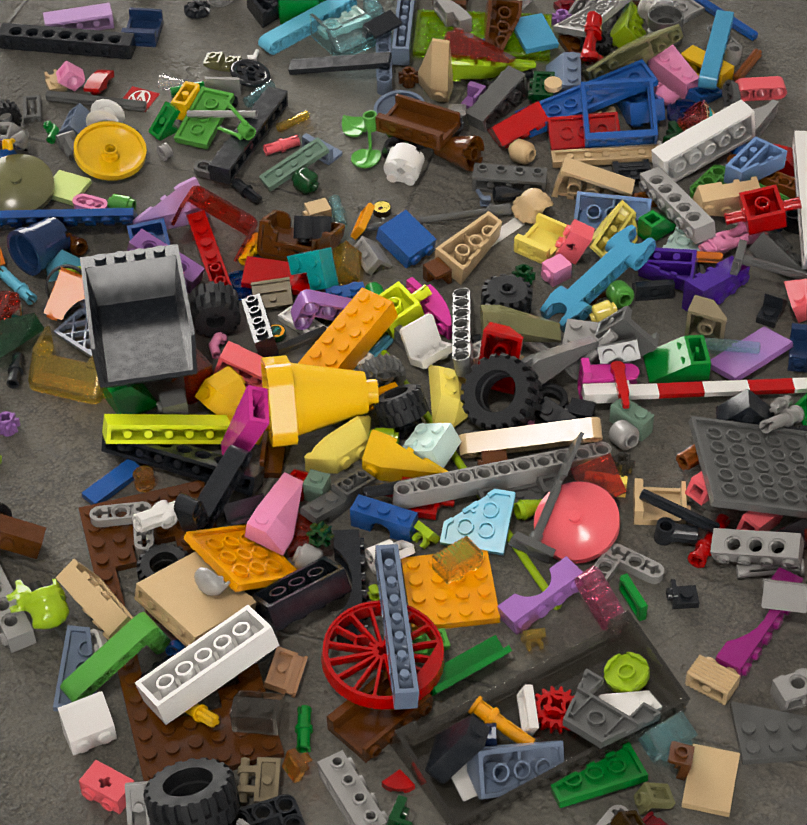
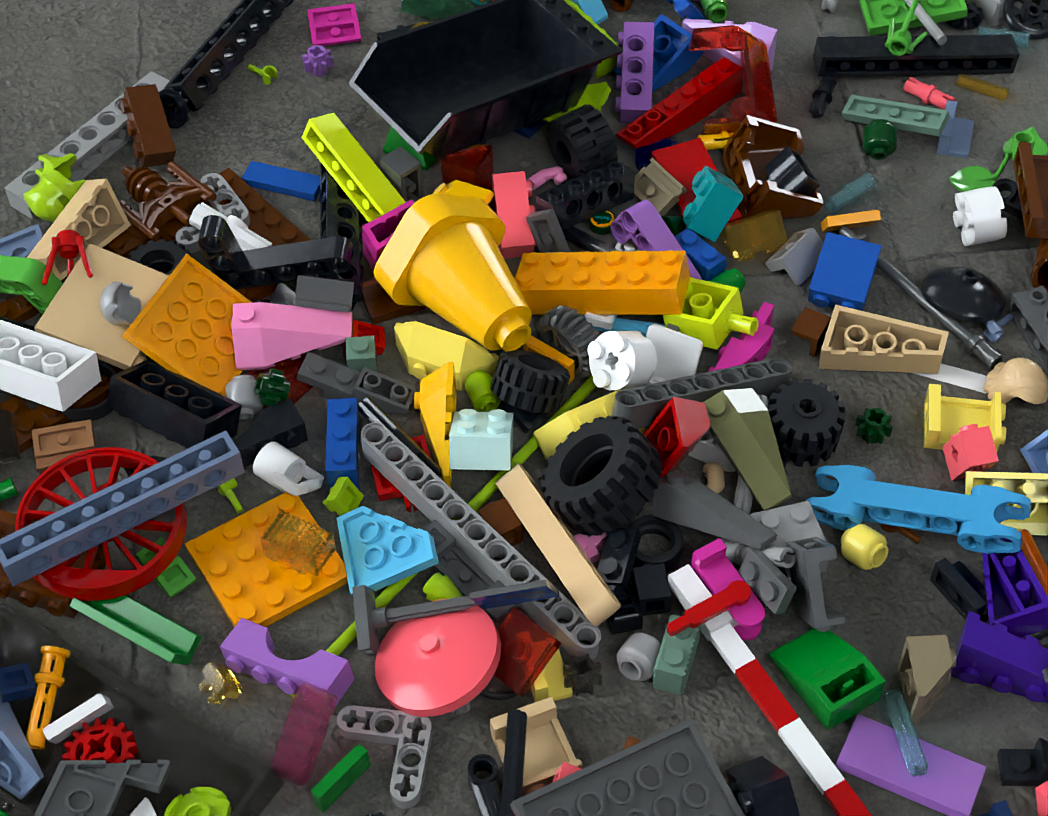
camera: 65 degrees right, 5 degrees up
(95, 547) = (161, 200): none -> reddish brown bar
(129, 598) = (68, 244): none -> red plant
(144, 478) = (298, 202): clear orange wheel -> none
(261, 480) = (324, 293): none -> dark grey panel
(280, 348) = (547, 231): none -> dark grey plate
(317, 208) = (832, 172): tan brick -> none
(382, 209) = (892, 233): tile -> none
(424, 343) = (621, 360): none -> white brick
(453, 198) = (963, 294): none -> black dish
(504, 193) = (1020, 344): black cone -> none
(556, 270) = (911, 458): bright pink brick -> none
(620, 293) = (917, 551): bright green head -> none

